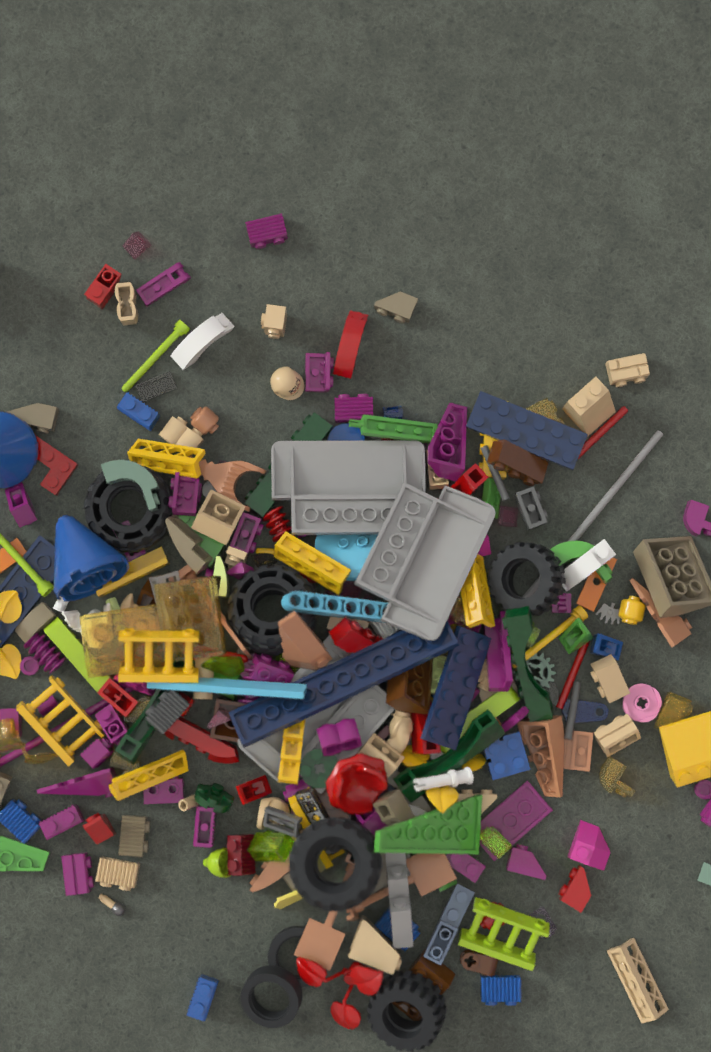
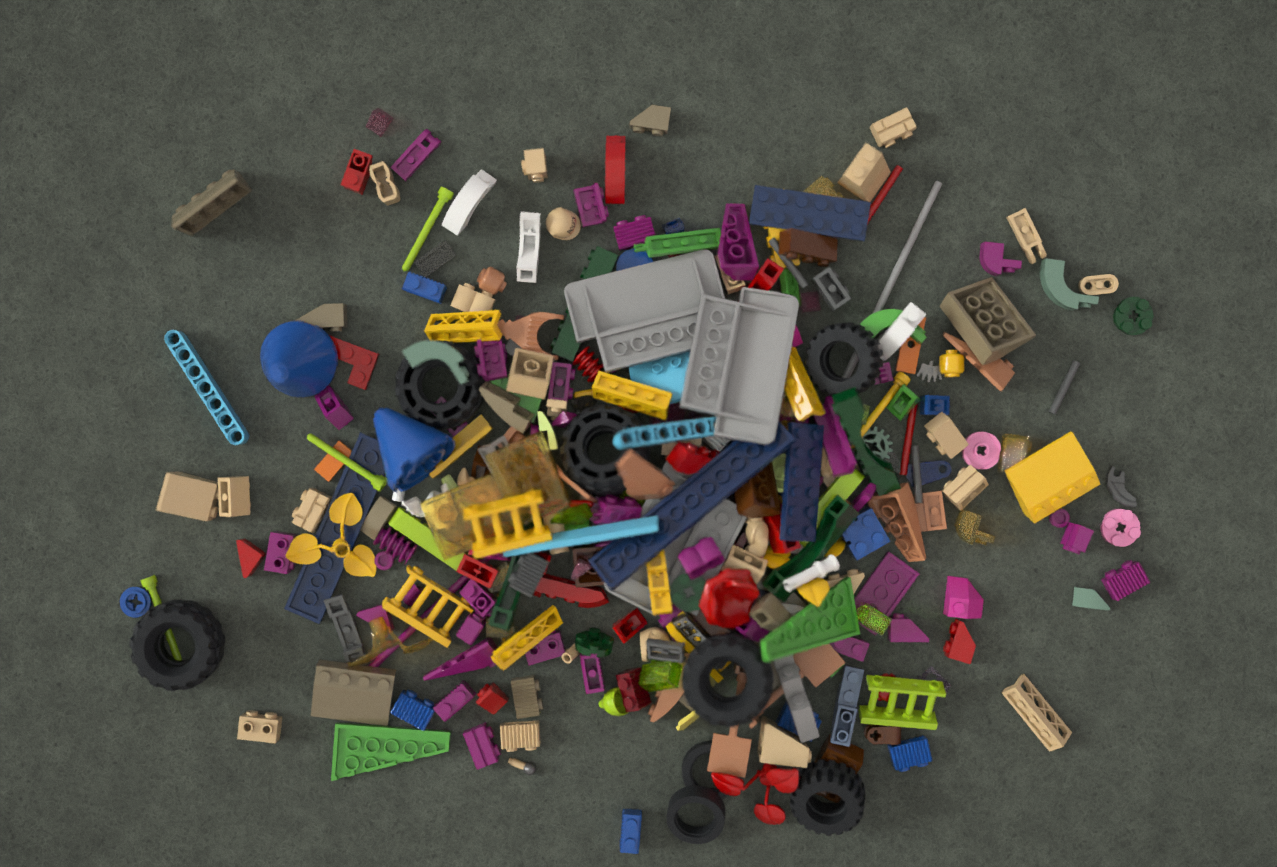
camera: 10 degrees left, 5 degrees up
(249, 397) = (529, 247): none -> white arch
(266, 231) = (504, 76): magenta brick -> none

